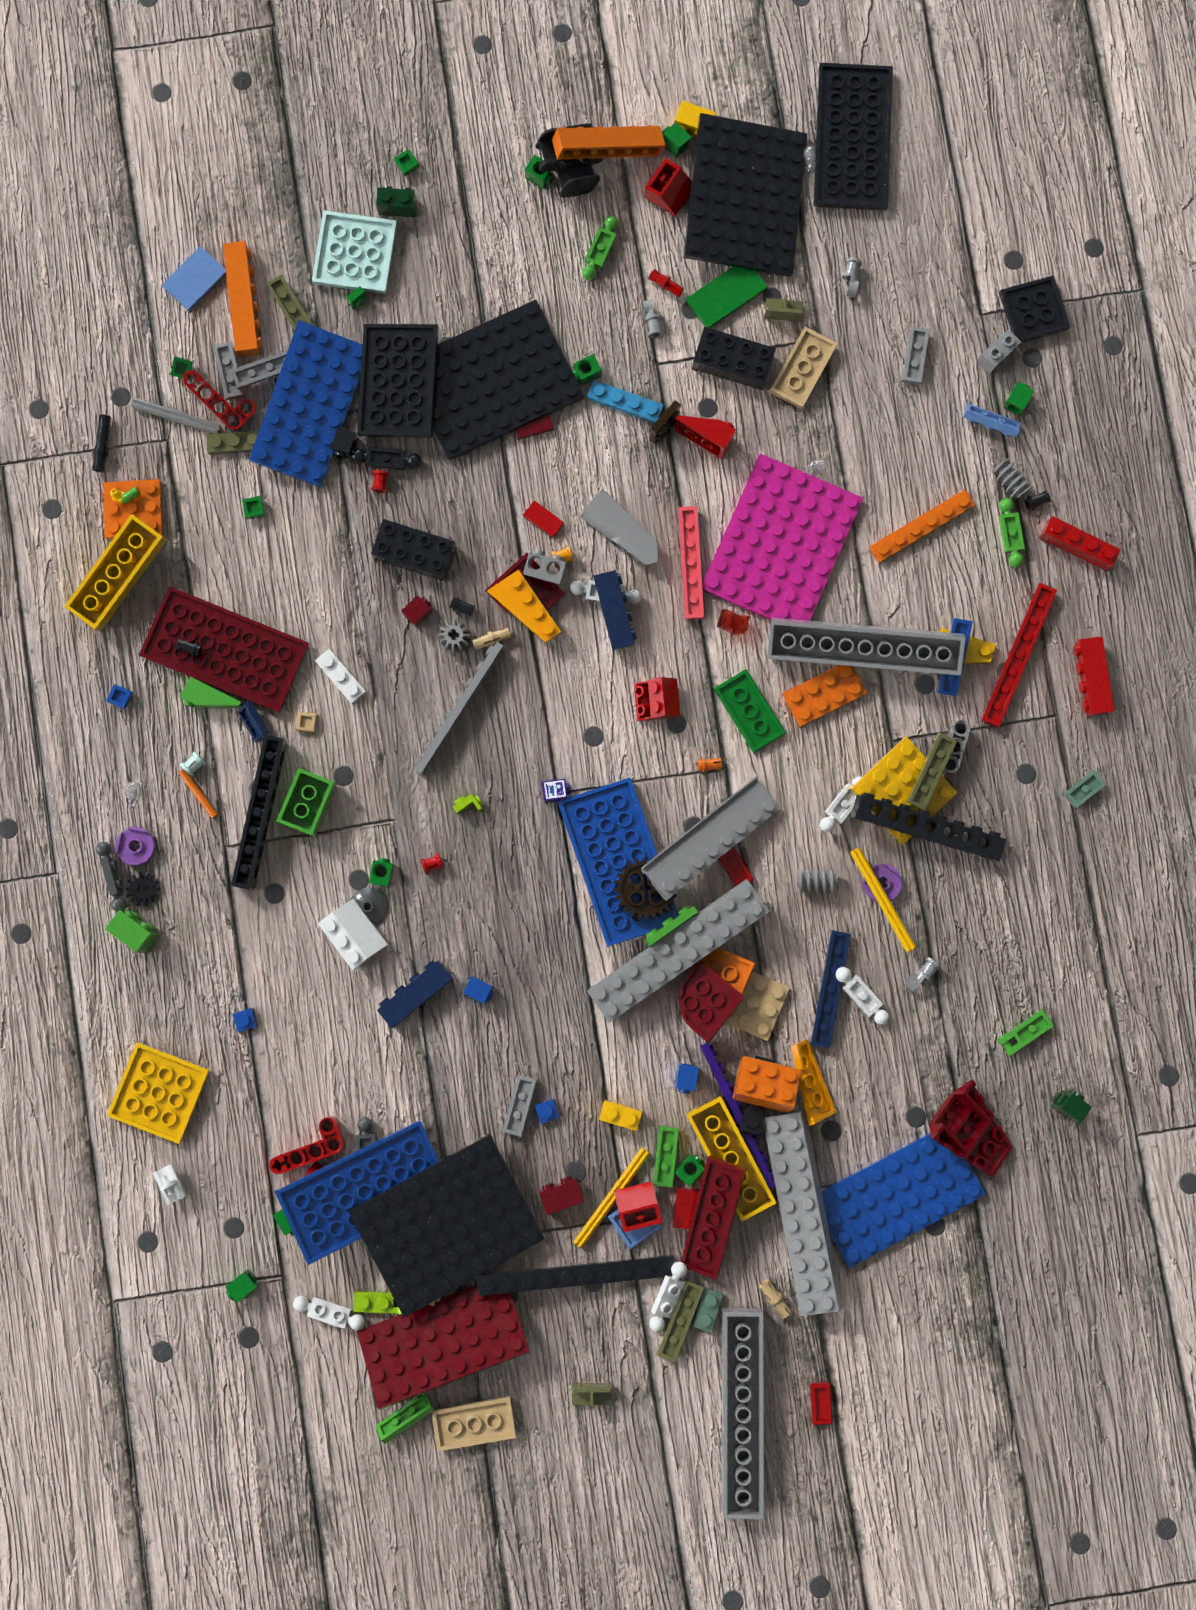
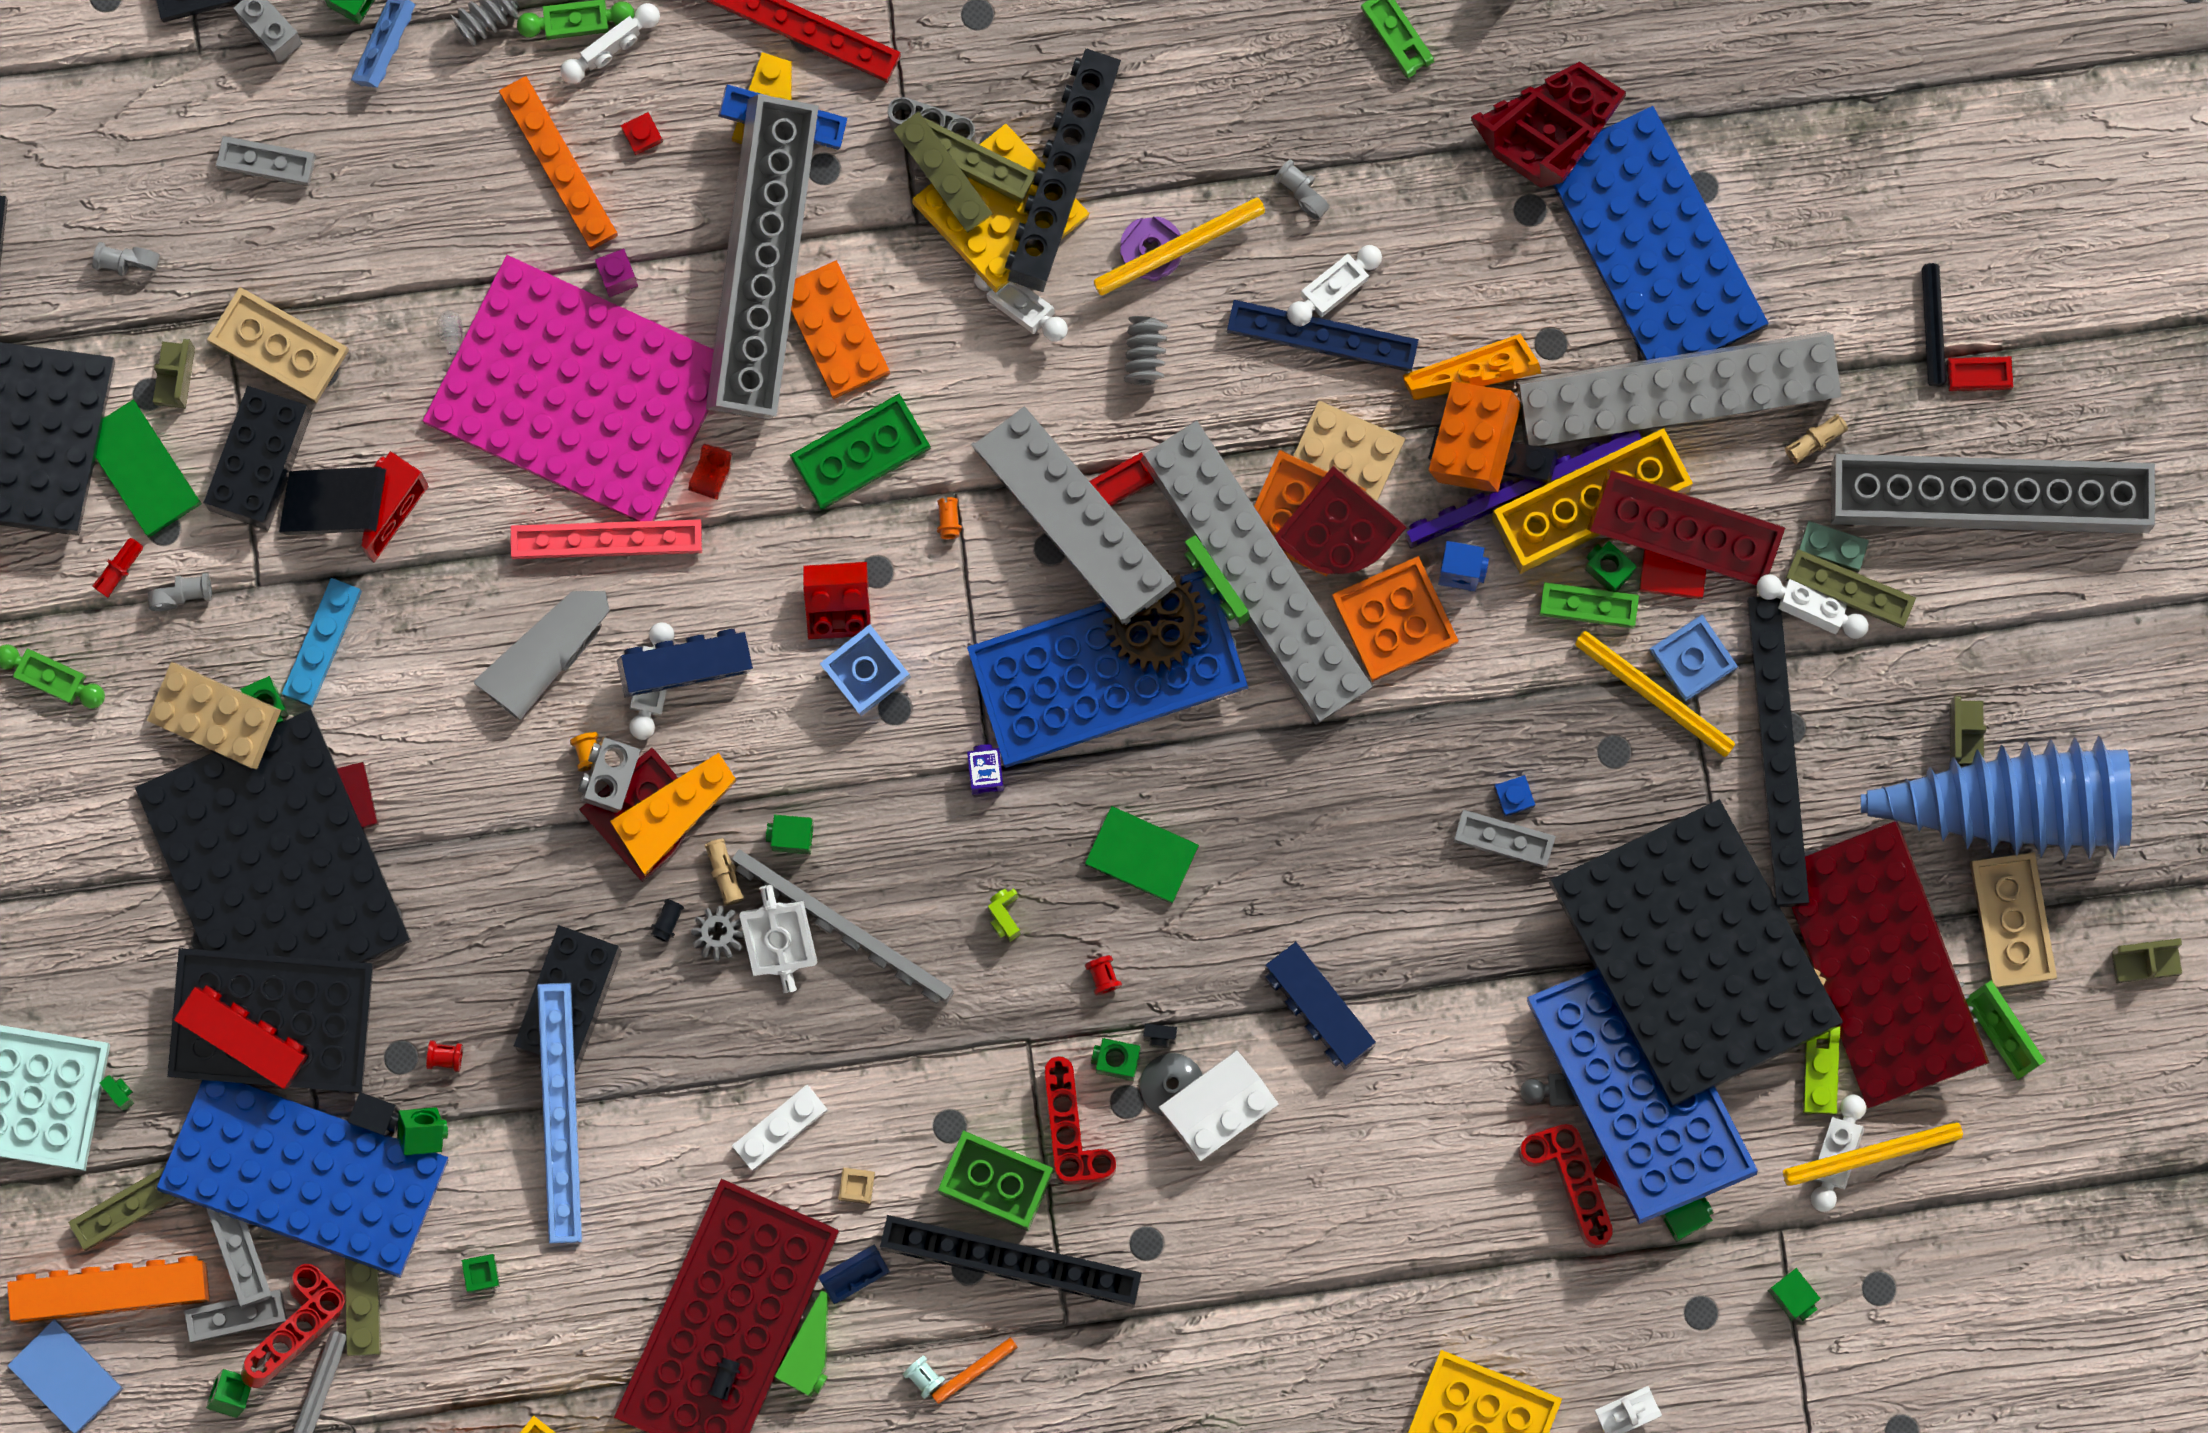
camera: 85 degrees left, 5 degrees down
(245, 1020) = (1358, 1291): blue plate -> none
(325, 1335) = (1872, 1154): none -> yellow axle
(334, 469) = (421, 1131): none -> green brick
(344, 546) = (559, 1113): none -> light blue tile
(344, 846) = (1070, 1120): none -> red beam
(384, 361) = (241, 1037): none -> red brick
(386, 458) = (404, 1045): black plate -> none
(395, 898) = (1160, 1035): none -> black plate
(417, 610) = (672, 995): dark red brick -> none
(449, 1508) = (2147, 960): none -> olive panel
(450, 670) = (778, 938): none -> white plate
(479, 990) = (1315, 901): blue brick -> none
(506, 885) = (1142, 855): none -> green tile
(514, 676) = (790, 834): none -> green brick
(543, 519) = (520, 783): red tile -> none
(544, 1433) = (2021, 799): none -> medium blue cone
(561, 1195) = (1650, 773): dark red brick -> none
(577, 340) = (214, 715): none -> tan plate
(613, 716) = (865, 670): none -> light blue brick
(620, 1115) = (1521, 675): yellow brick -> none
(637, 1206) = (1668, 648): red slope -> none
(654, 1036) = (1395, 618): none -> orange plate
(665, 421) = (375, 578): dark brown plate -> none
(706, 400) = (332, 501): none -> black tile
(851, 1373) = (1933, 324): none -> black axle
(854, 562) = (616, 272): none -> magenta brick
(922, 753) = (943, 172): none -> olive plate
(942, 575) = (641, 133): none -> red plate
(1000, 558) = (619, 37): none -> white plate

